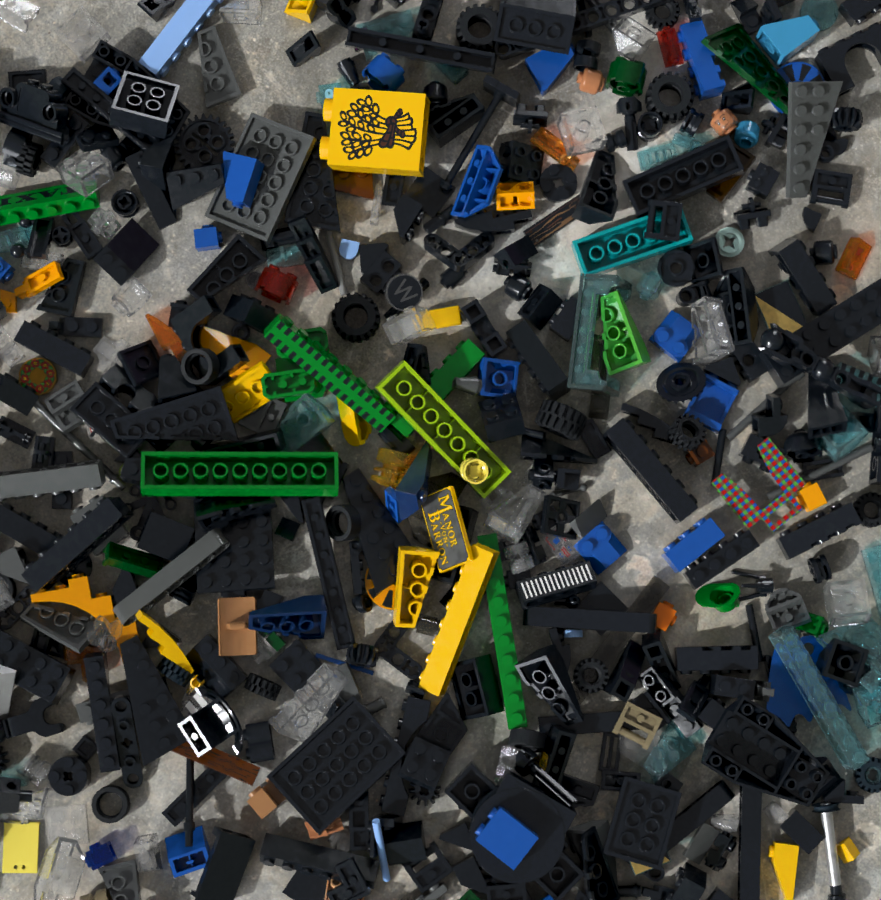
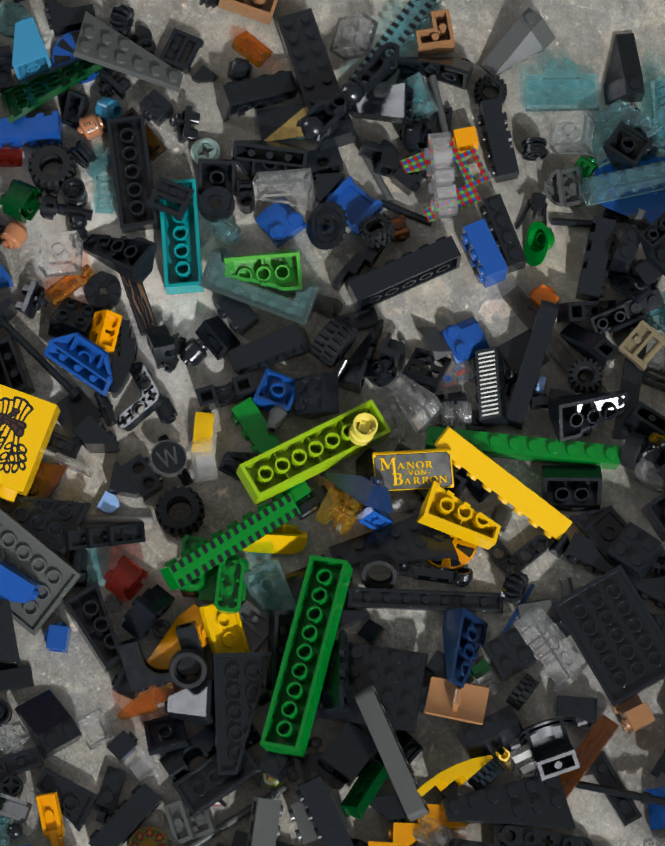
camera: 80 degrees left, 10 degrees down
(122, 327) = (123, 745): none -> black brick
(760, 482) = (441, 175): none -> clear wedge

